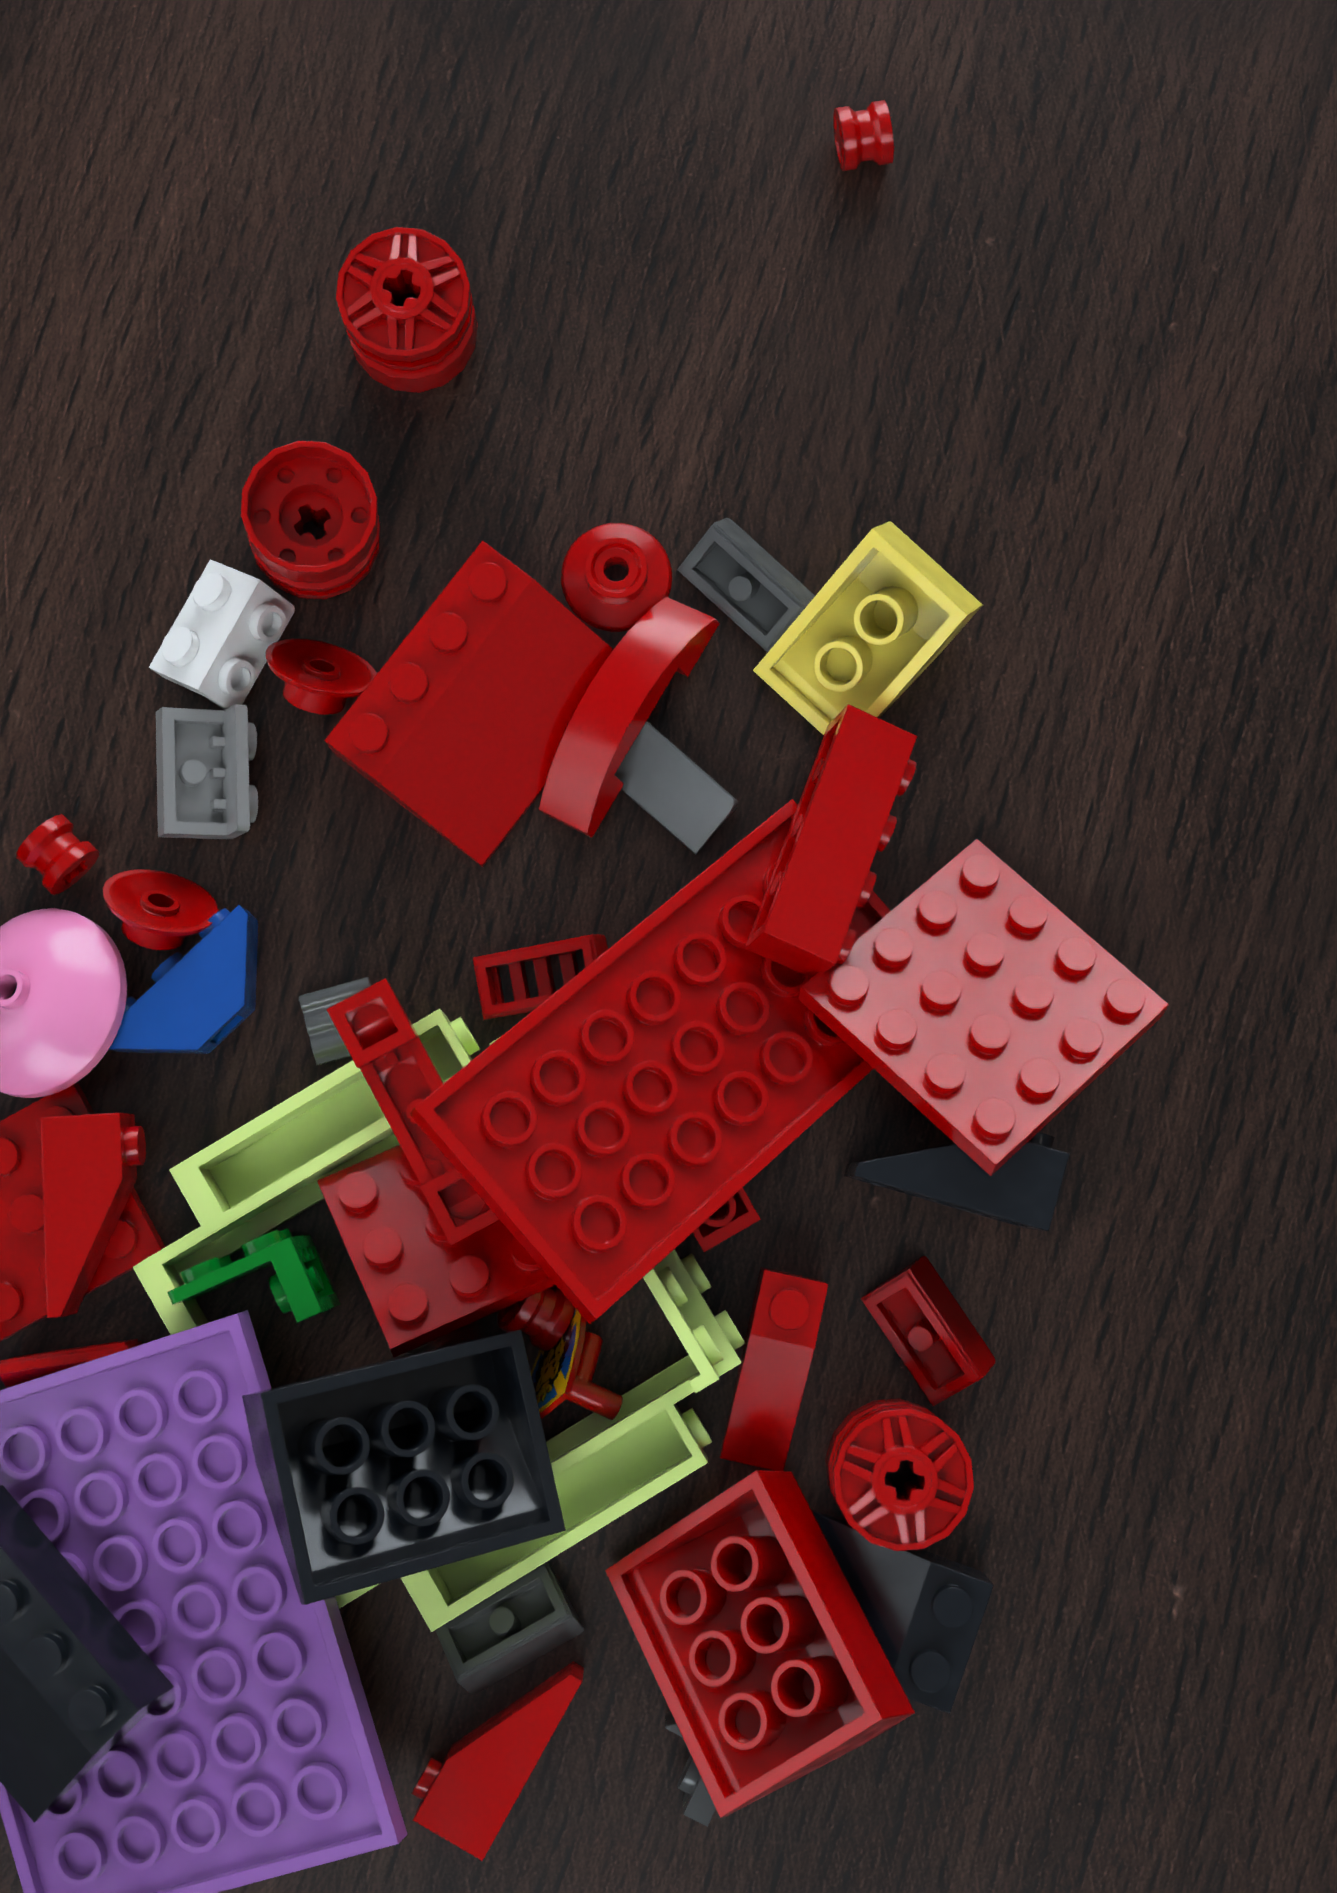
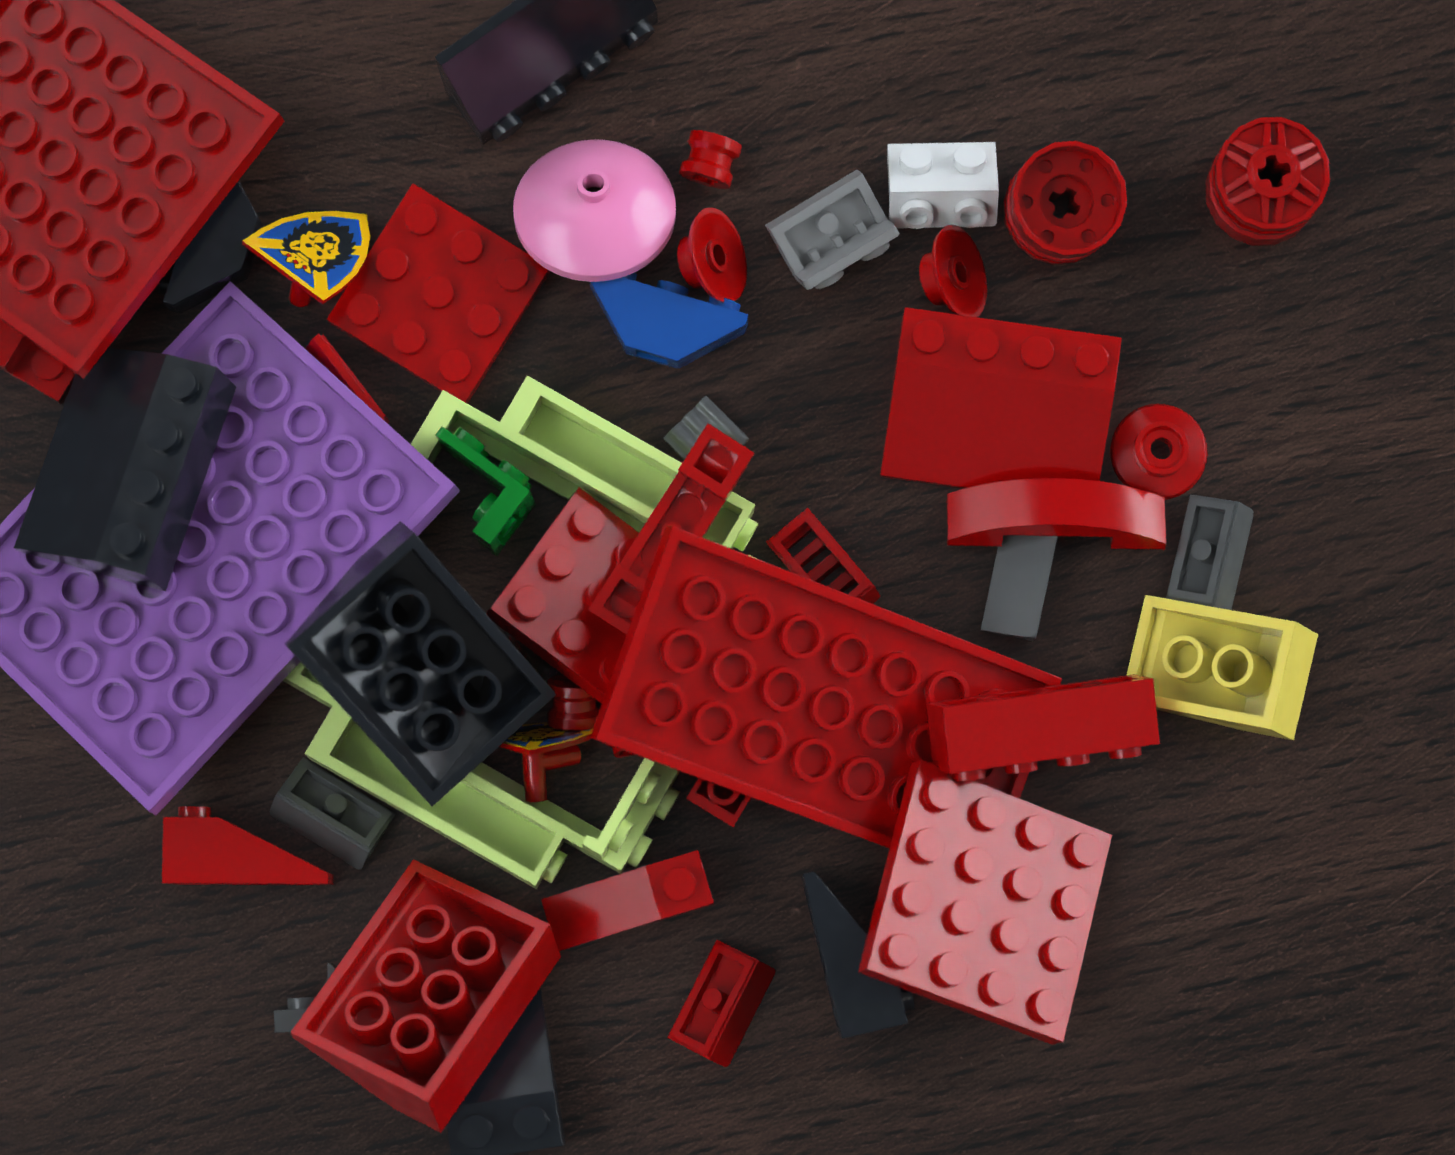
camera: 65 degrees right, 0 degrees up
(86, 1185) = (480, 324): red slope -> none
(874, 1443) = (591, 1064): red wheel -> none

